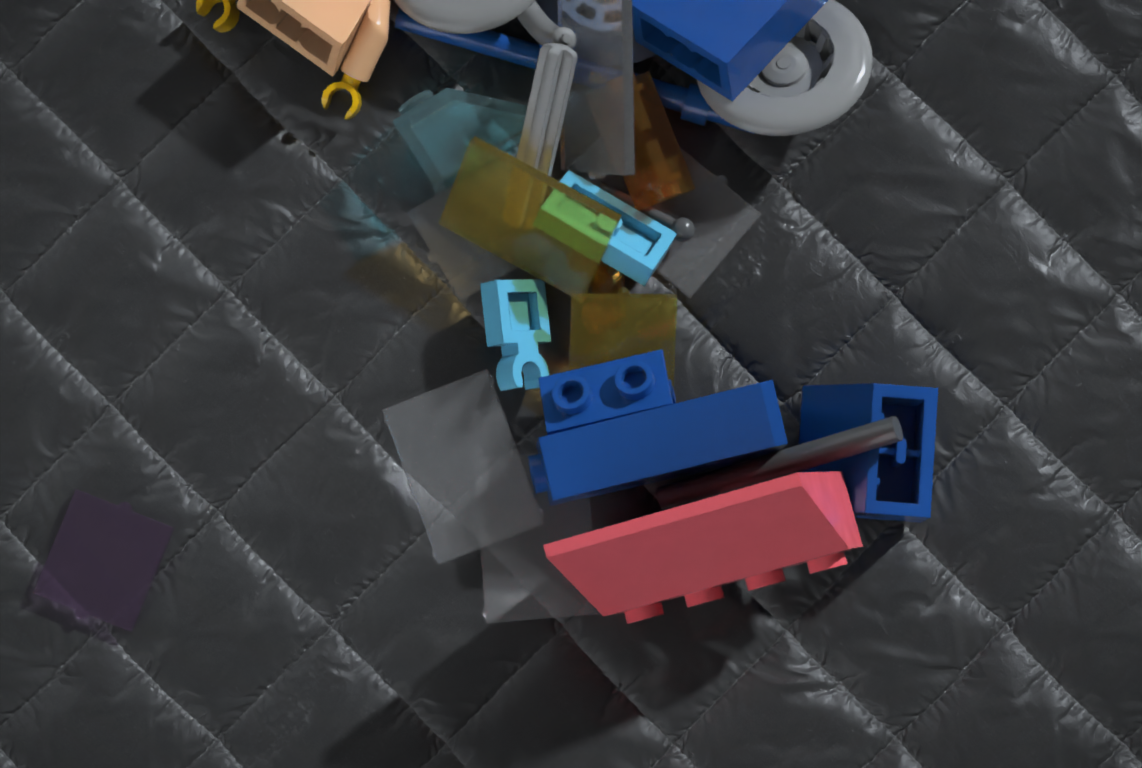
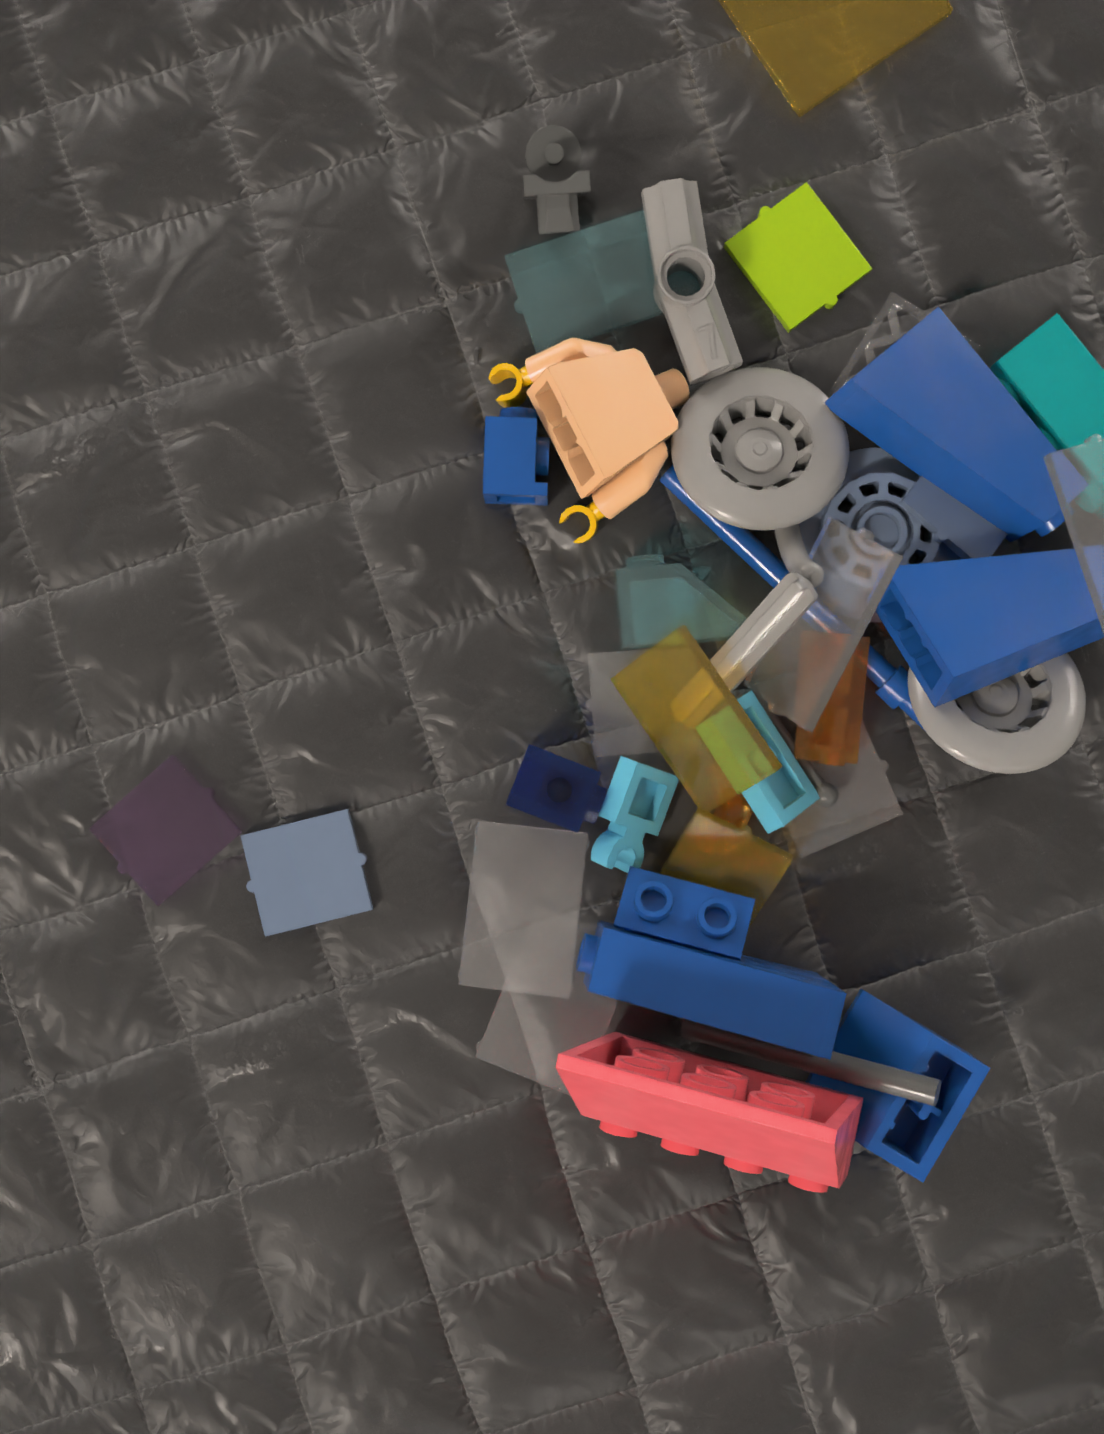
camera: 20 degrees right, 5 degrees up
(251, 534) = (306, 872): none -> sand blue piece
(256, 71) = (514, 458): none -> blue brick
(418, 328) = (531, 784): none -> clear blue brick

